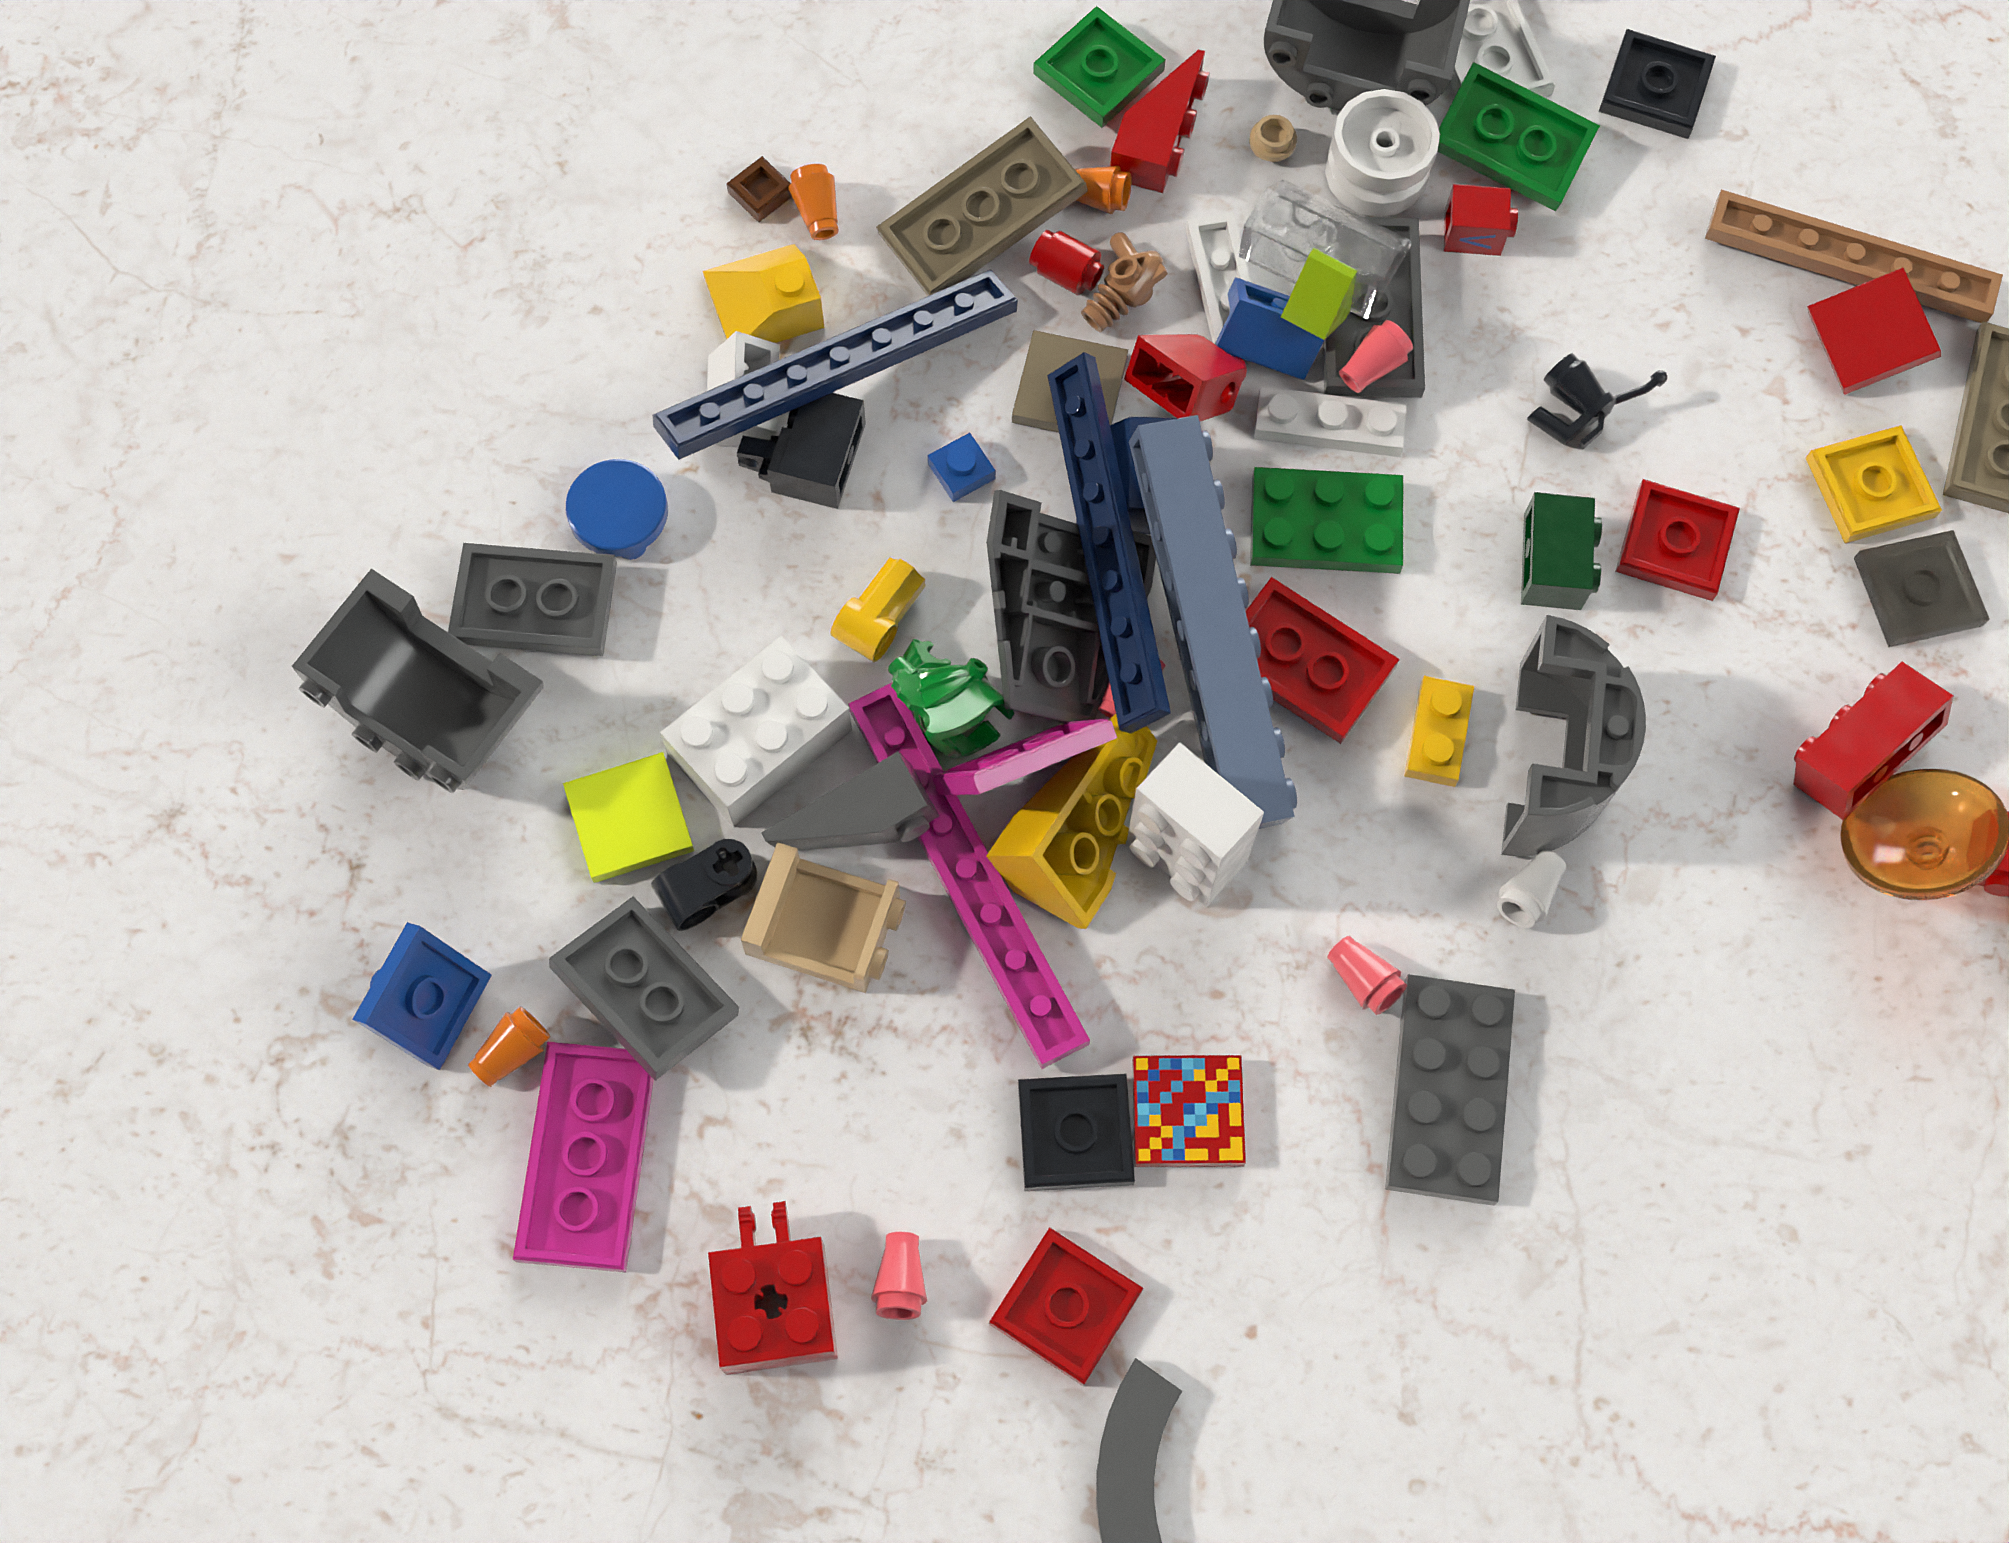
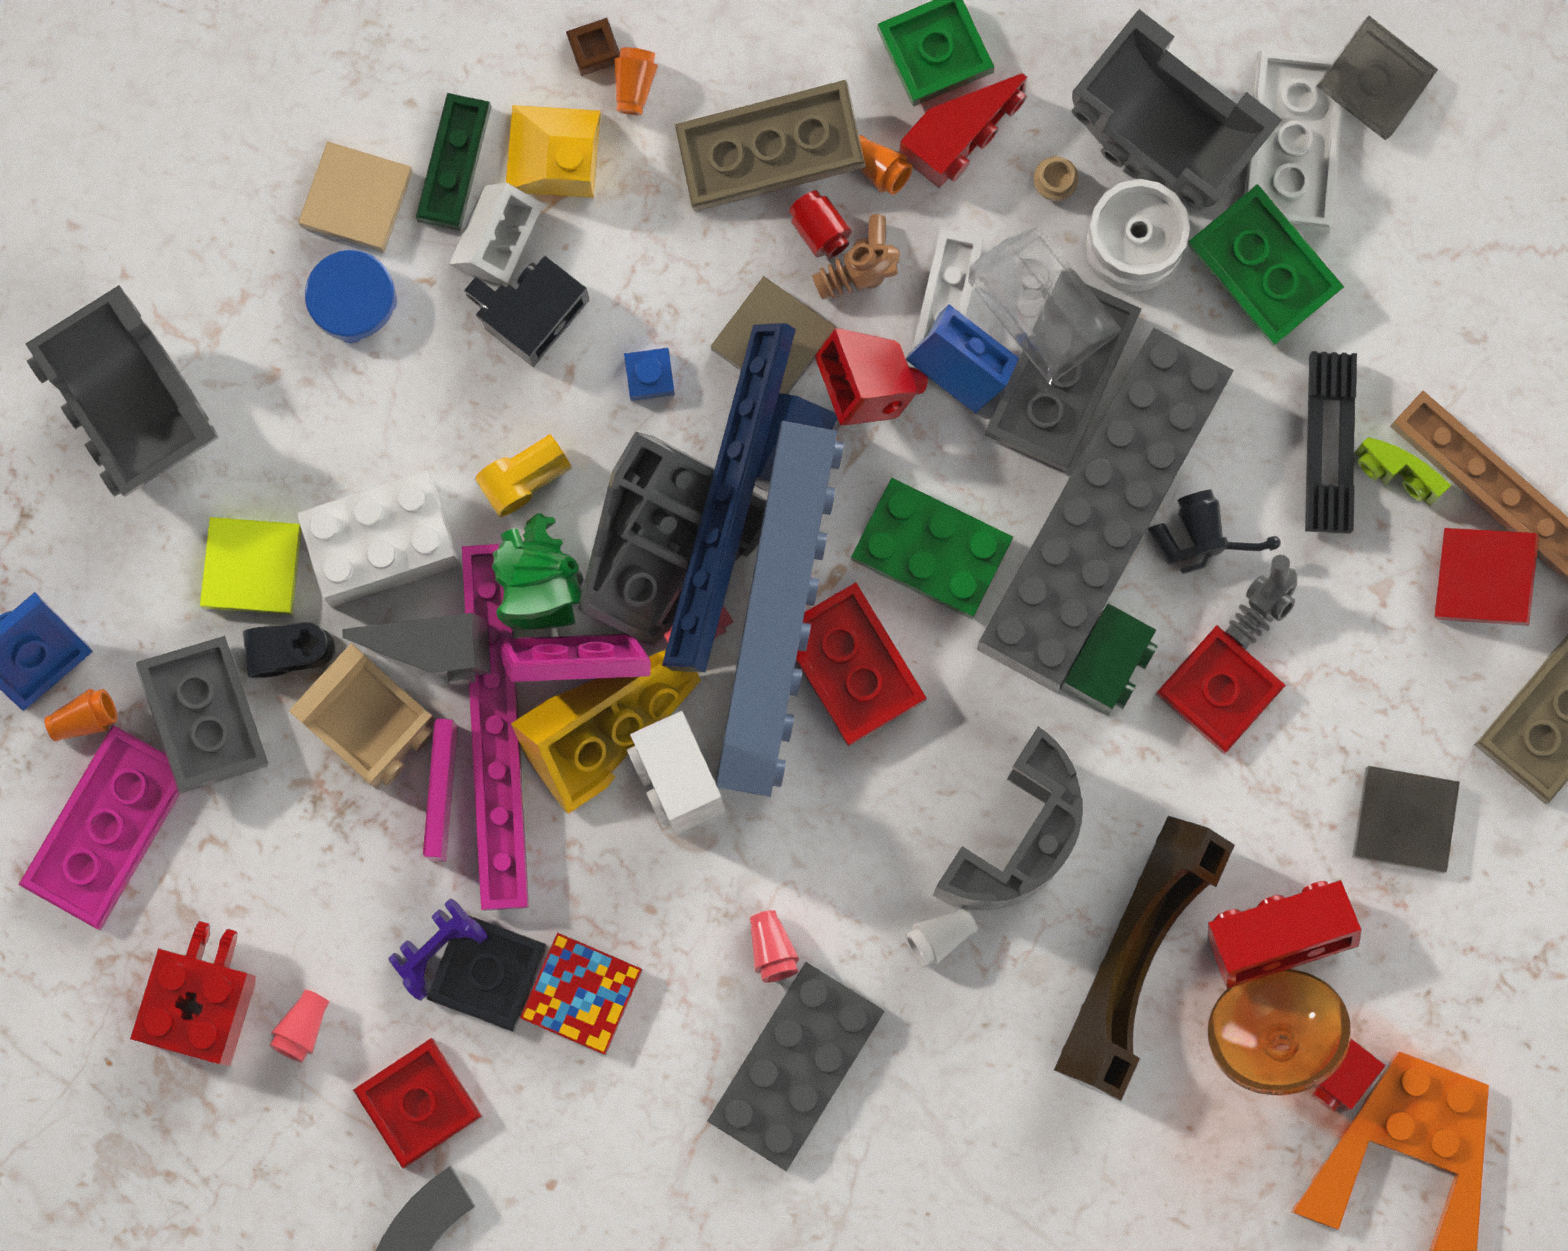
camera: 30 degrees right, 10 degrees up
(533, 599) = (250, 348): dark grey plate -> none
(579, 415) = (355, 196): none -> tan tile
(665, 341) = (453, 161): none -> dark green tile
(833, 364) = (579, 244): dark blue tile -> none
(939, 960) = (440, 790): none -> dark pink tile
(997, 1160) = (457, 927): none -> dark purple piece
(1321, 295) = (1002, 360): lime slope -> none
(1330, 421) = (978, 461): white plate -> none
(1377, 355) = (1034, 426): coral cone -> none
(1439, 731) = (934, 770): yellow plate -> none
(1478, 220) = (1198, 326): red brick -> none
(1481, 417) = (1104, 510): none -> dark grey brick
(1657, 83) = (1427, 261): black tile -> none
(1680, 435) = (1268, 601): none -> dark grey piece
(1694, 326) = (1331, 506): none -> black container
(1722, 263) = (1386, 461): none -> lime slope
(1737, 715) = (1177, 870): none -> dark brown arch
(1873, 484) = (1416, 710): yellow tile -> none

